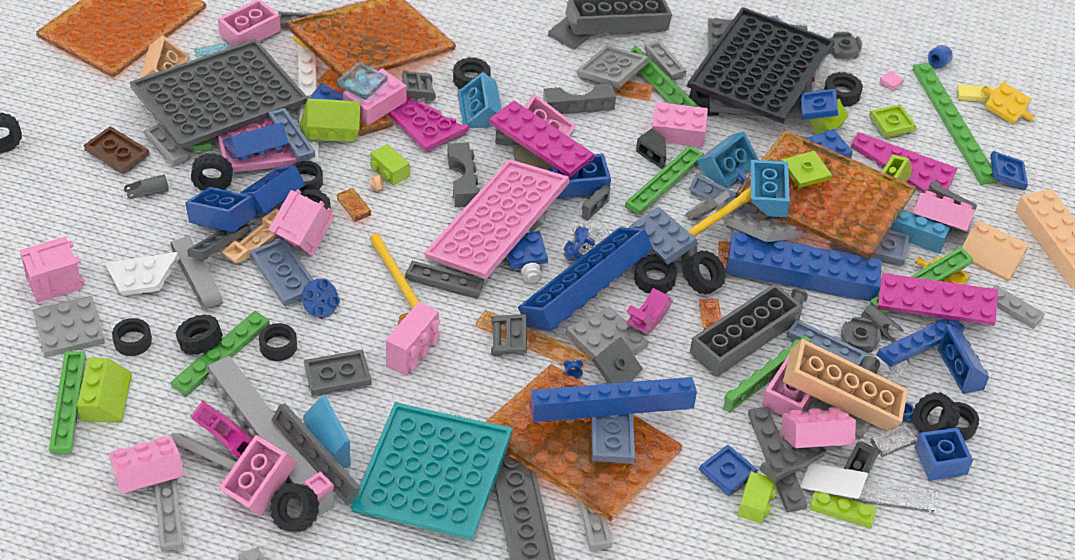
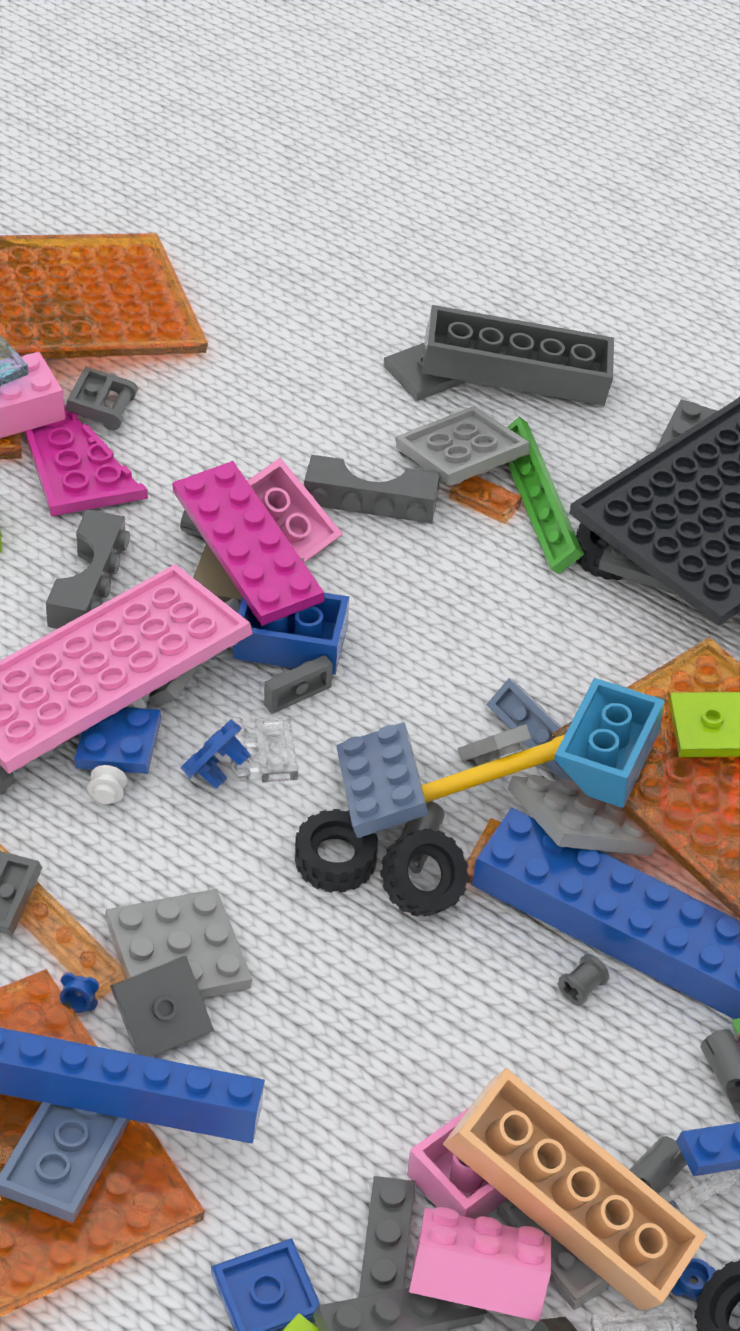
camera: 20 degrees right, 0 degrees up
(468, 65) = (206, 418): black tyre -> none
(479, 101) = (192, 446): dark azure slope -> none
(585, 278) = (190, 822): blue brick -> none
(650, 313) = (280, 926): dark pink arch -> none
(652, 147) = (459, 609): pearl dark grey slope -> none
(663, 180) = (448, 675): bright green plate -> none
(665, 59) = (568, 456): light grey plate -> none
(680, 123) = (529, 579): bright pink brick -> none
(709, 312) = (402, 962): clear orange plate -> none
(726, 157) = (569, 666): dark azure slope -> none
(745, 329) = (447, 1009): dark grey brick -> none
(758, 380) = (415, 1124): bright green plate -> none
(826, 342) = (599, 1087): sand blue plate -> none
(870, 334) = (675, 1105): dark grey plate -> none

